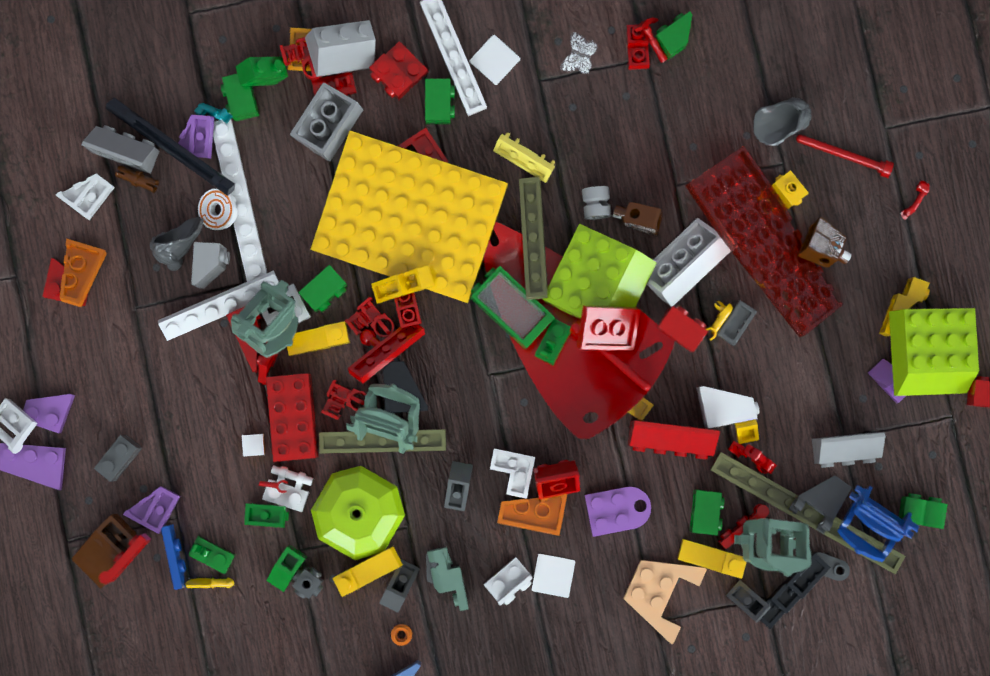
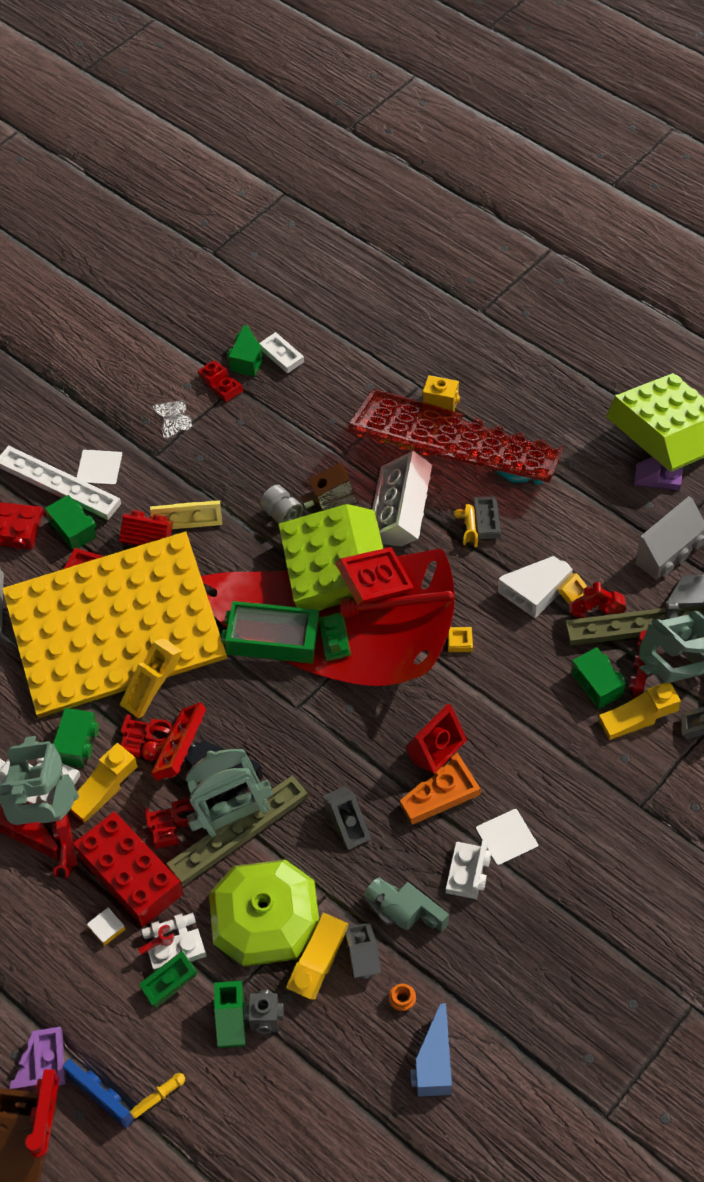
camera: 30 degrees left, 30 degrees down
(211, 555) = (138, 1065): green plate -> none
(253, 381) = (63, 863): none -> red hand
(407, 310) = (172, 701): red slope -> none
(484, 152) = (140, 529): none -> red brick
(518, 466) = (389, 761): white plate -> none
(533, 238) = (247, 564): olive plate -> none
(615, 511) = (514, 737): medium lavender plate -> none
(644, 25) = (217, 358): red piece -> none
(652, 588) = (610, 780): light nougat wing -> none
(672, 438) = (511, 634): red slope -> none
(682, 328) = (441, 530): red slope -> none
(702, 55) = (281, 352): none -> white plate
(781, 120) = (389, 352): dark grey hair -> none
(824, 244) = (507, 411): reddish brown torso -> none
(882, 167) = (504, 335): red piece -> none
(914, 293) = (615, 434): yellow slope -> none
(923, 188) = (551, 329): red piece -> none

